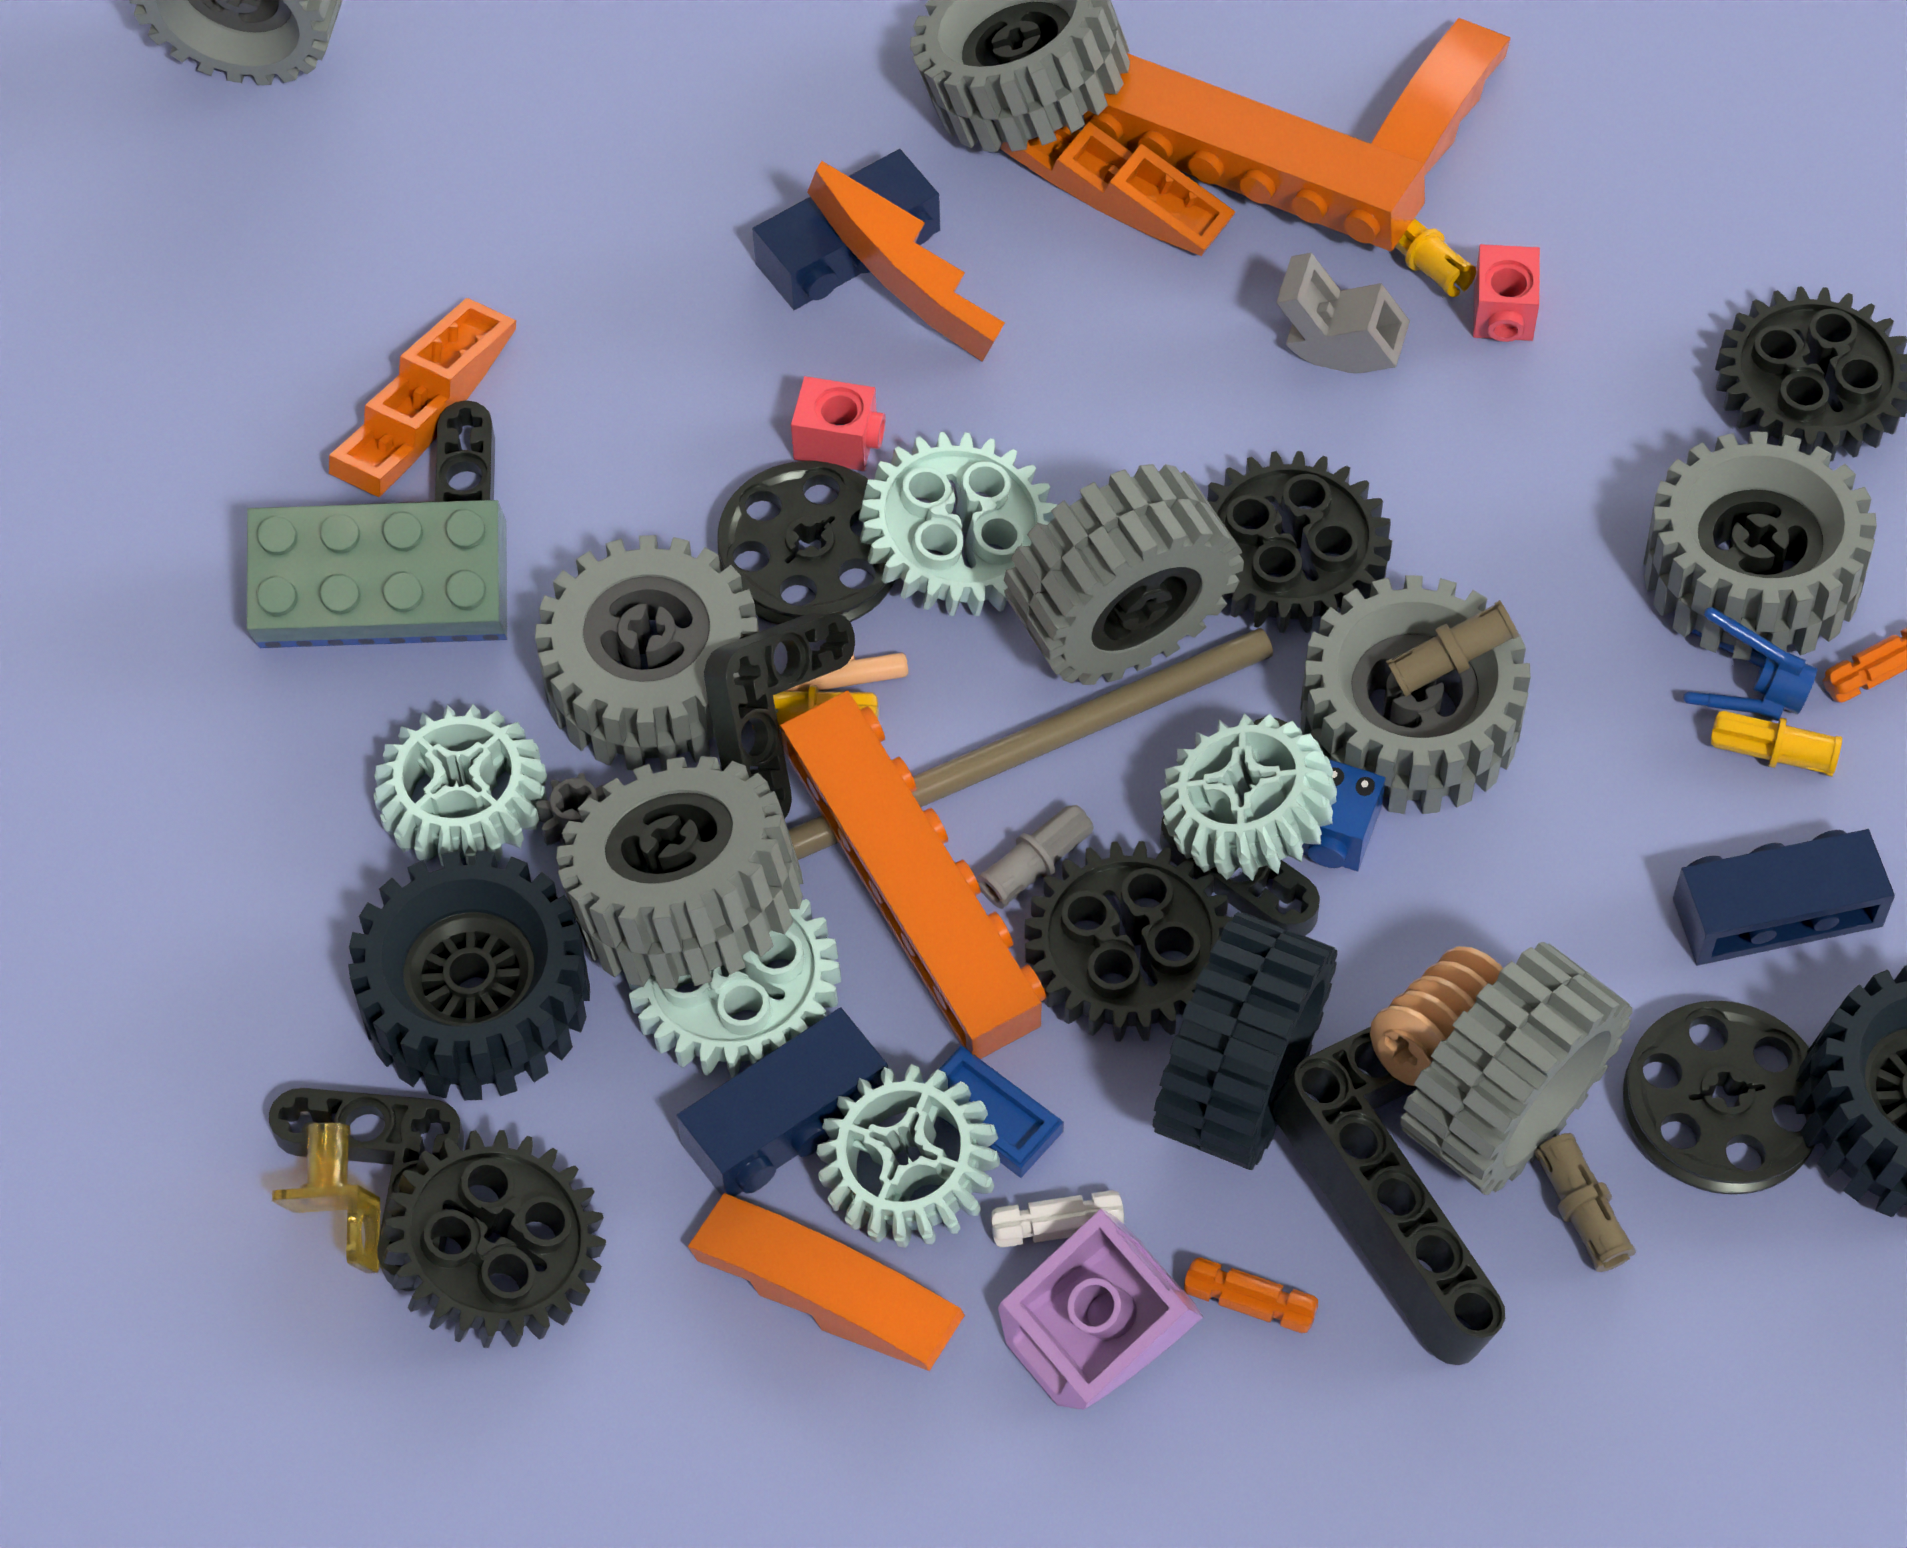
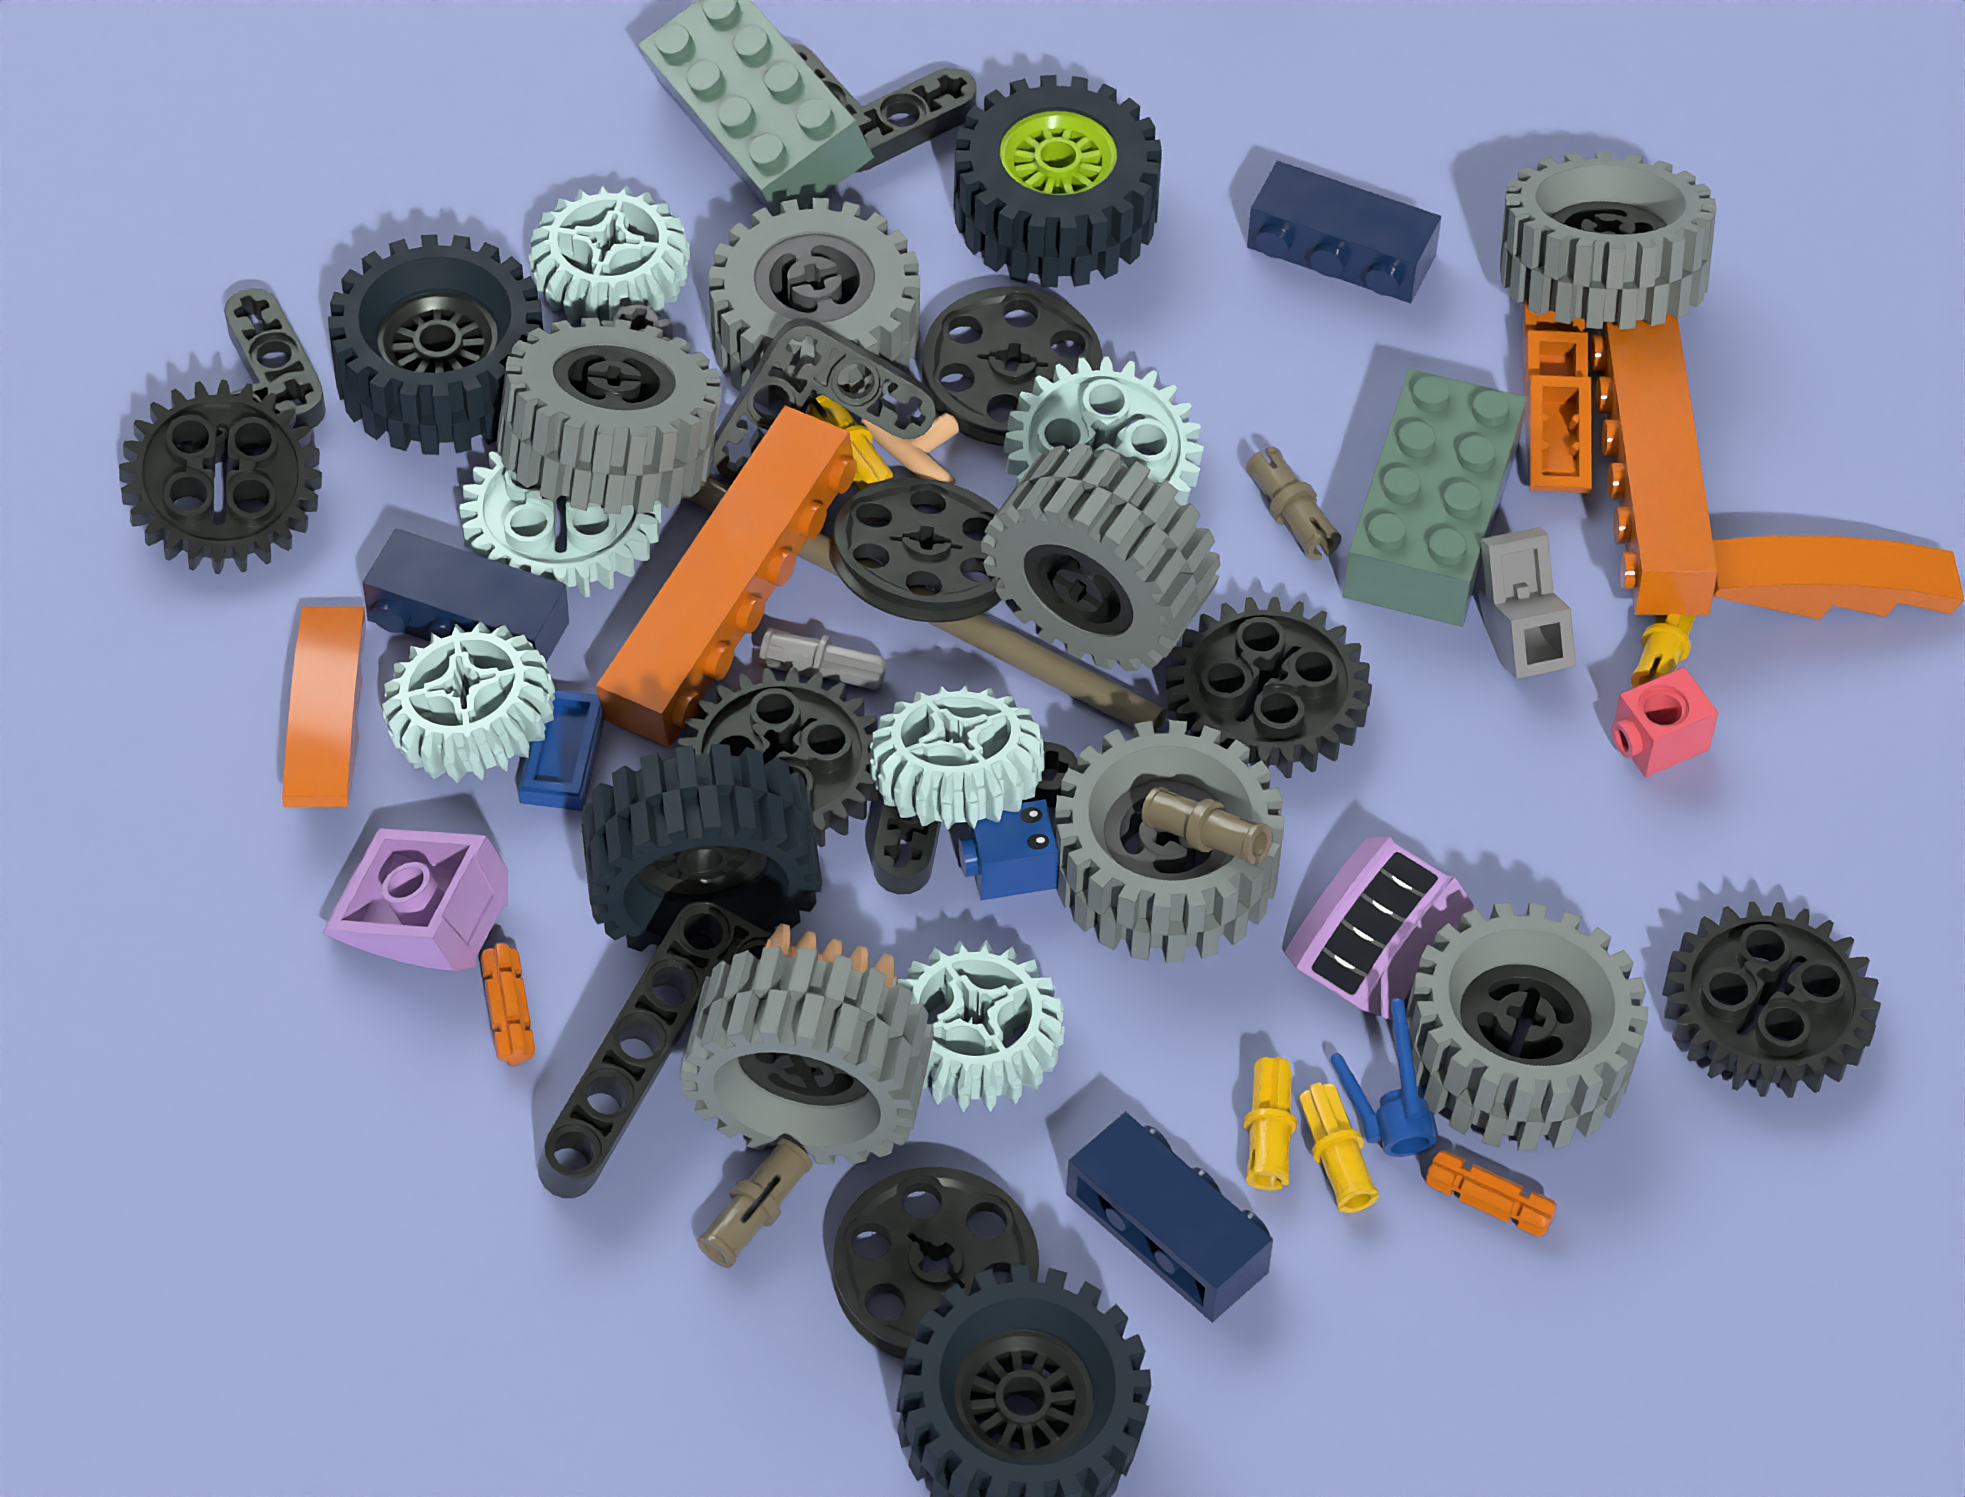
camera: 55 degrees right, 5 degrees down
(329, 1191) = (196, 356): clear yellow bracket -> none
(432, 376) = (986, 46): orange slope -> none
(651, 438) = (1057, 180): none -> black wheel
(829, 403) = (1139, 319): coral brick -> none
(886, 244) = (1322, 256): orange slope -> none
(981, 731) = (902, 551): none -> pearl dark grey wedge
(1050, 1218) = (464, 814): white axle -> none
(1104, 422) = (1293, 503): none -> dark tan pin
(1178, 318) = (1434, 497): none -> sand green brick
(1523, 900) = (985, 1003): none -> light aqua gear
(1581, 596) = (1375, 925): none -> lavender slope
(1728, 776) = (1270, 1124): none -> yellow axle

